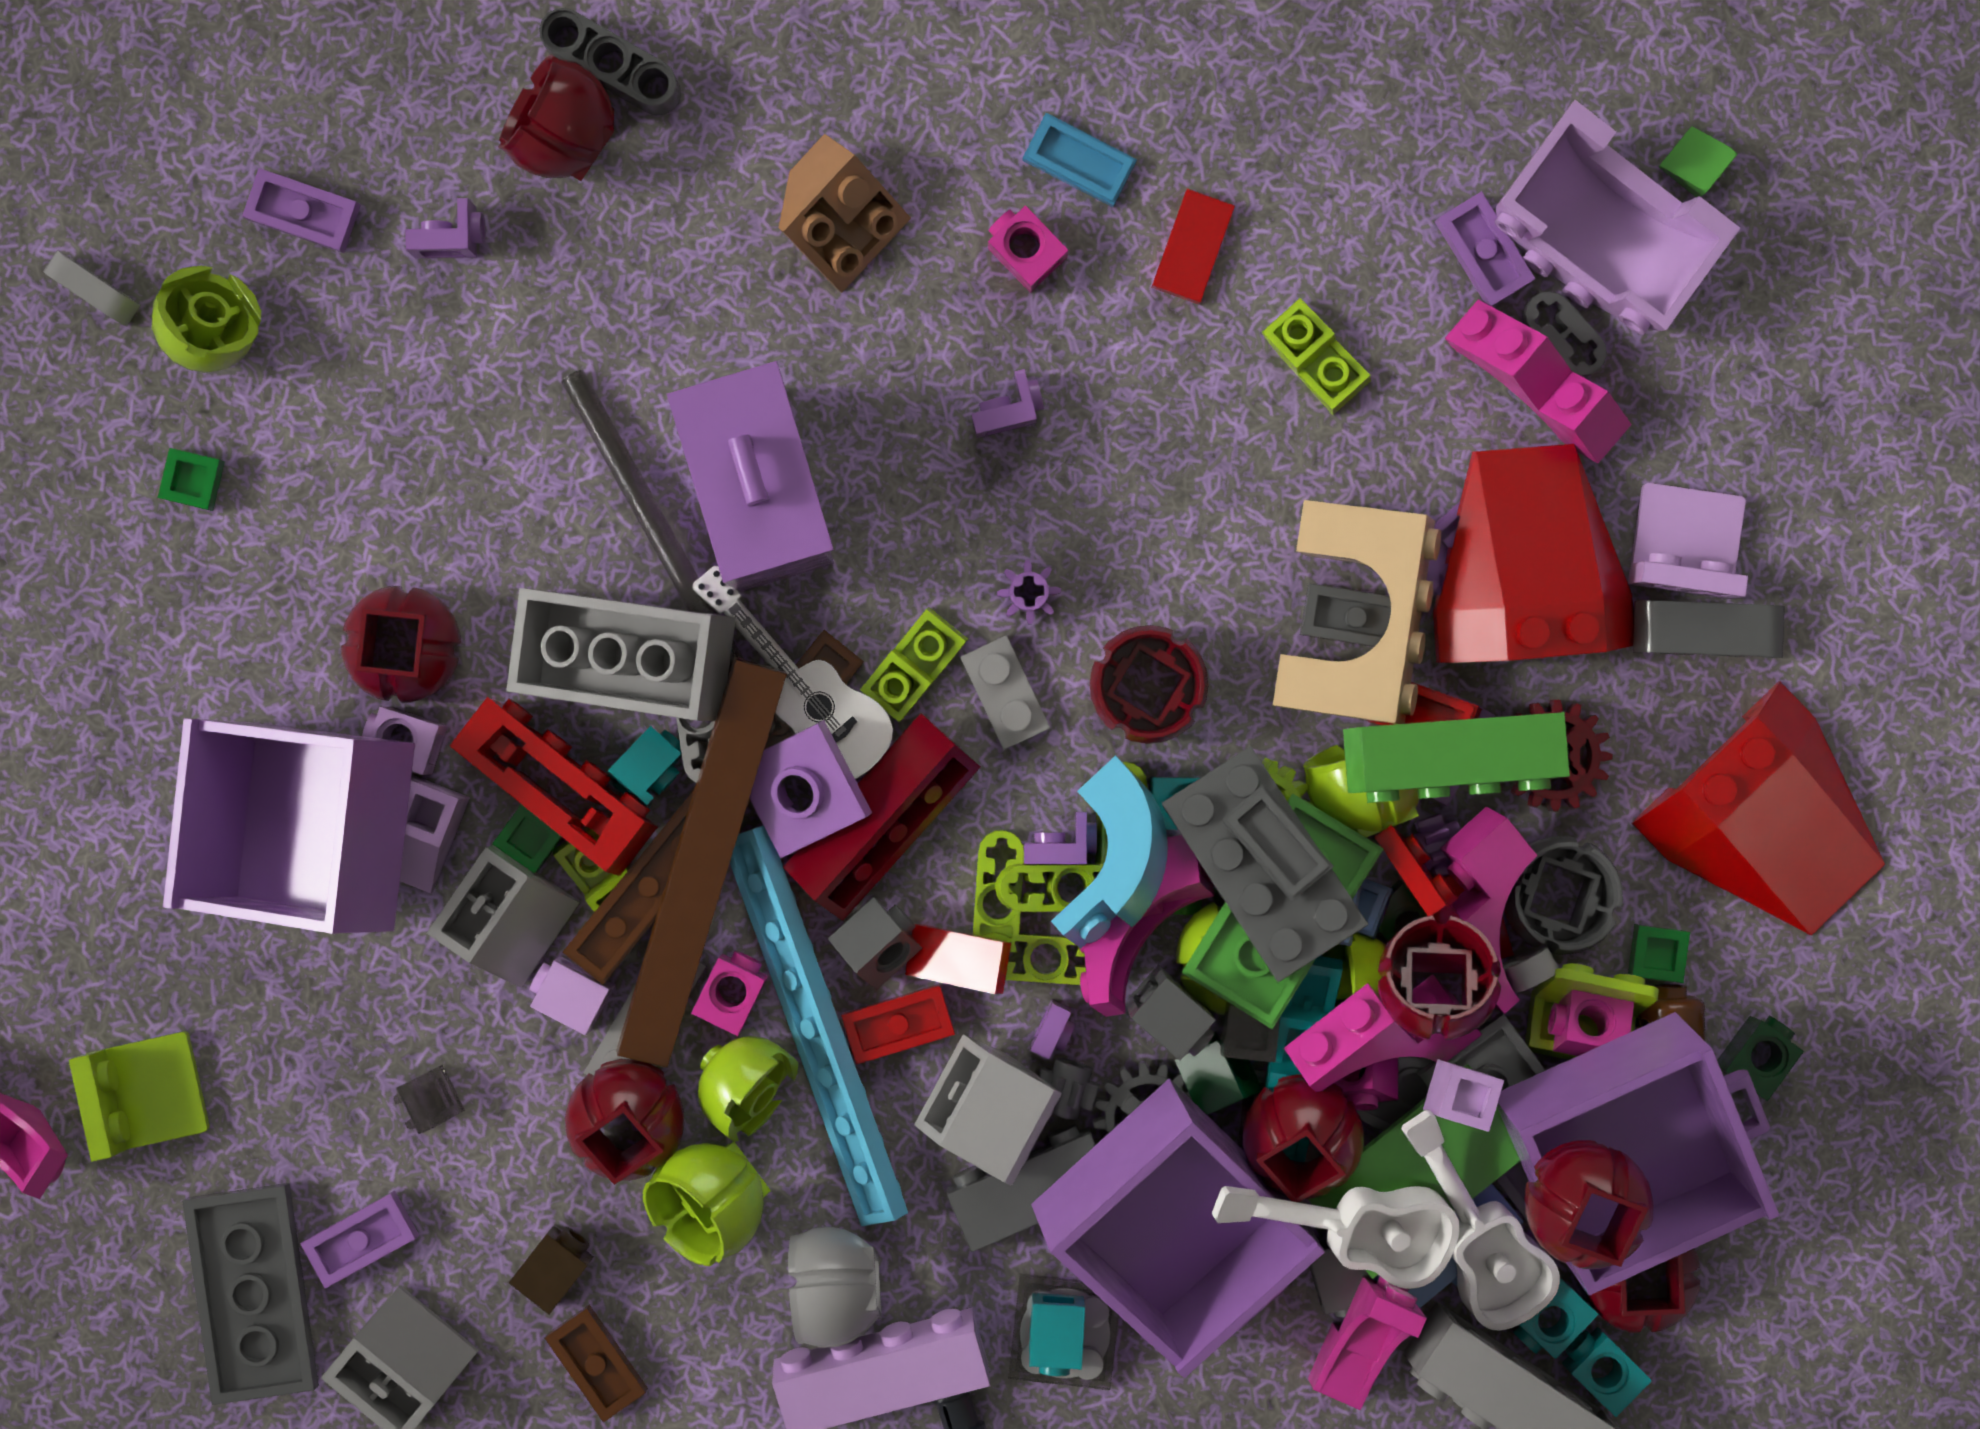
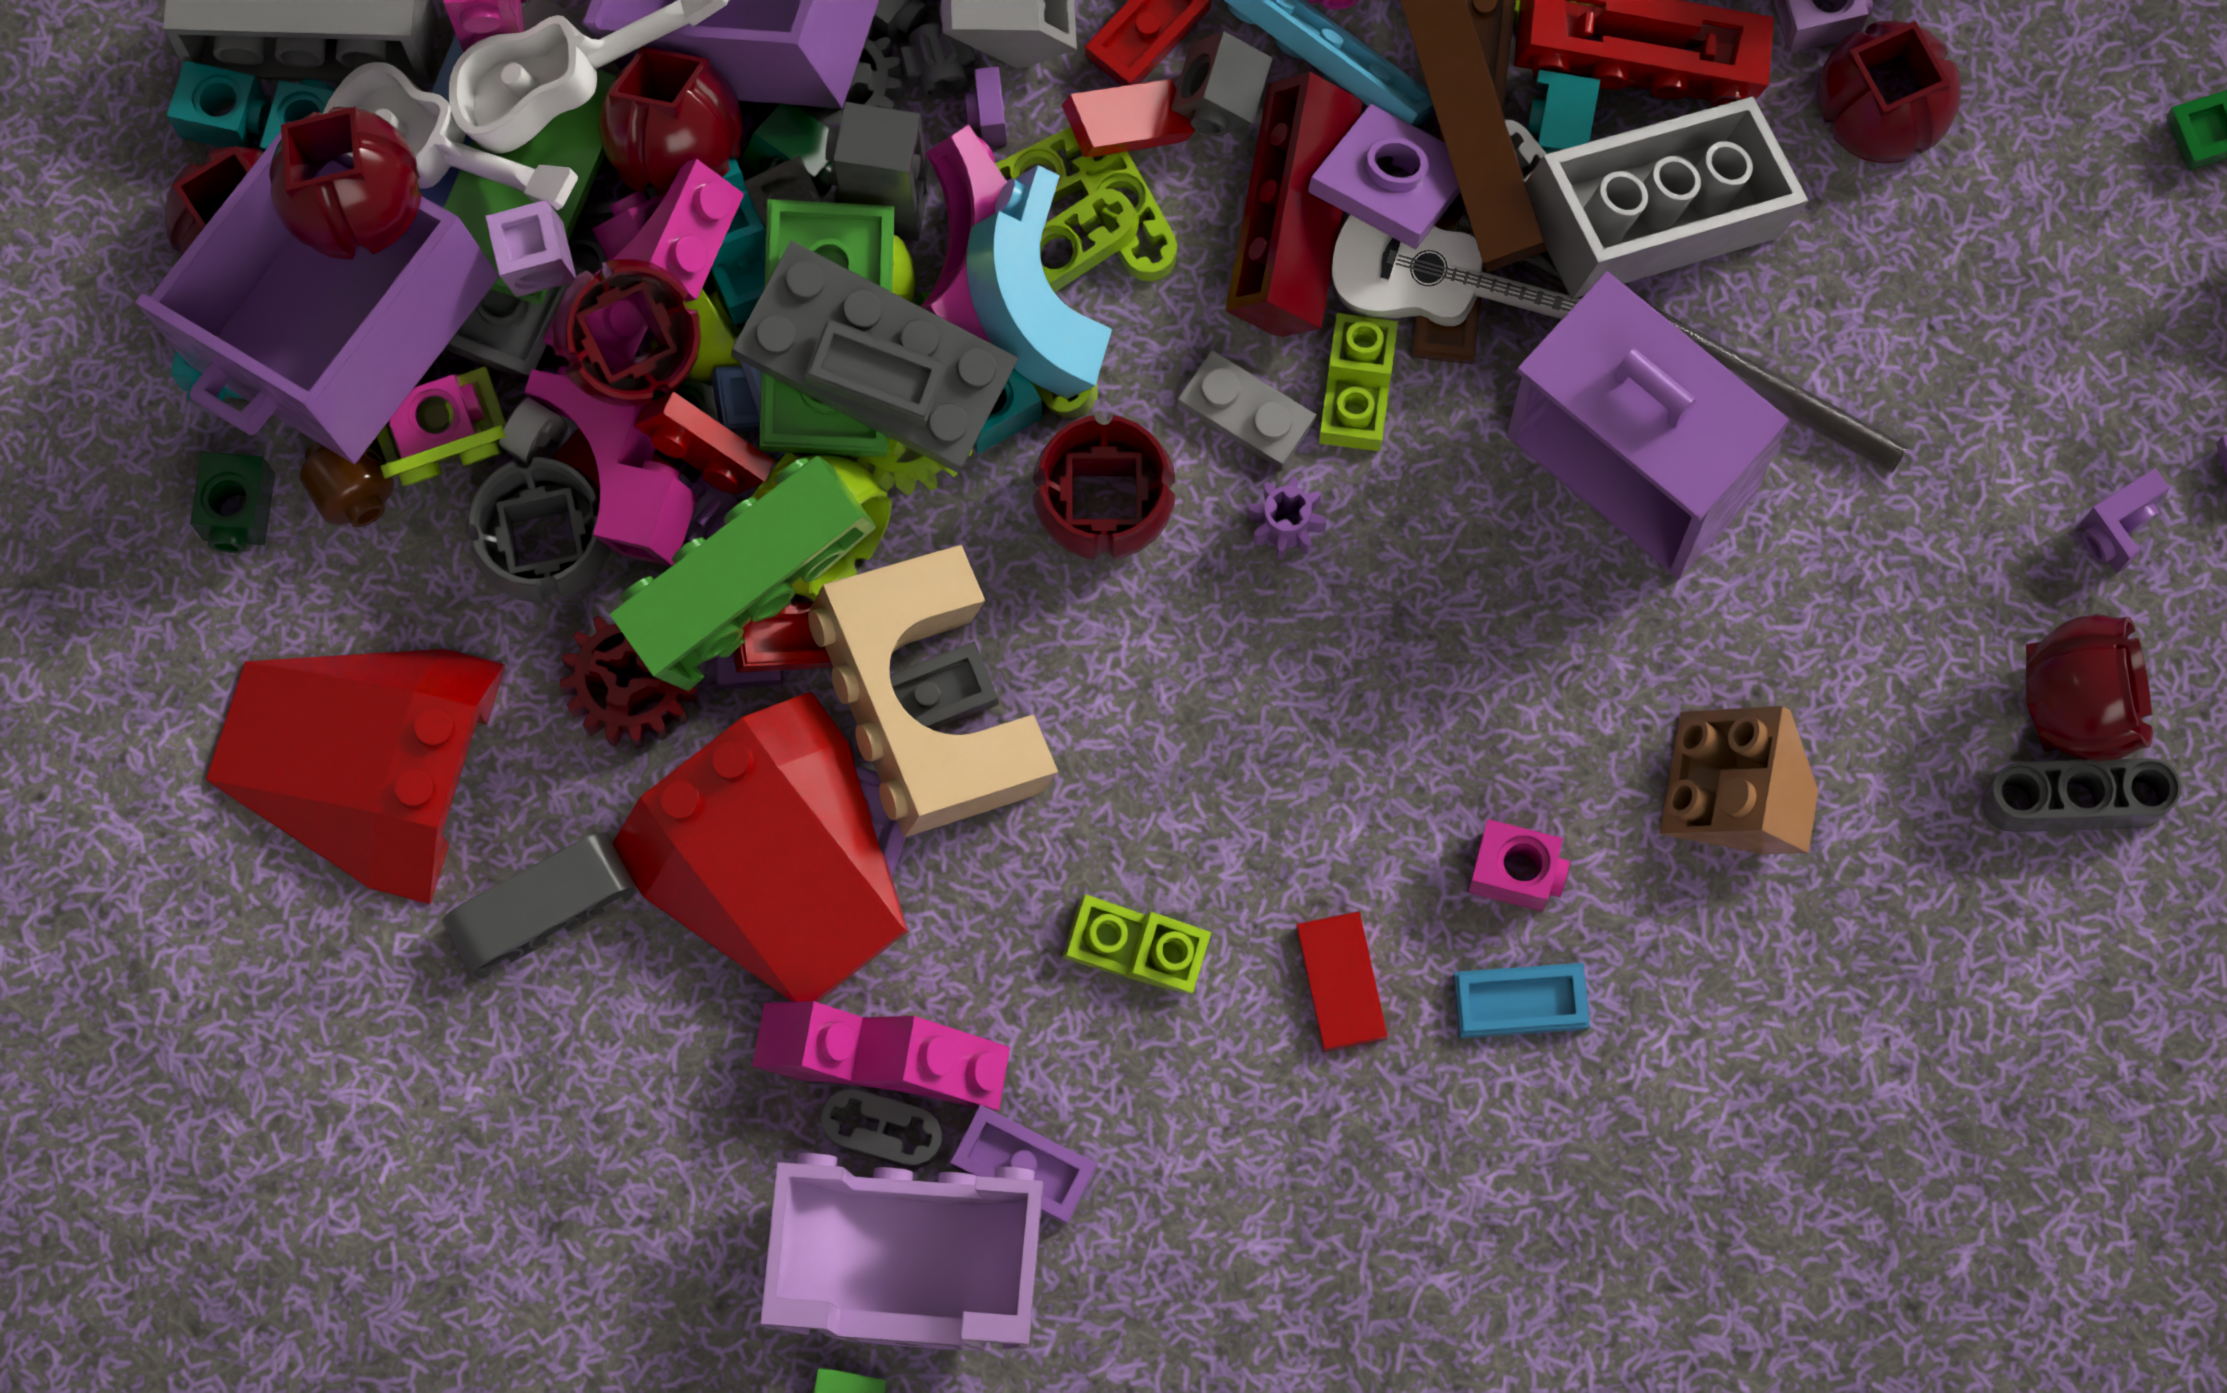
camera: 150 degrees right, 15 degrees down
(1000, 415) = (1430, 677): medium lavender bracket -> none
(1052, 849) = (1096, 279): medium lavender bracket -> none
(1659, 953) = (399, 545): green plate -> none
(1688, 542) = (613, 981): lavender bracket -> none

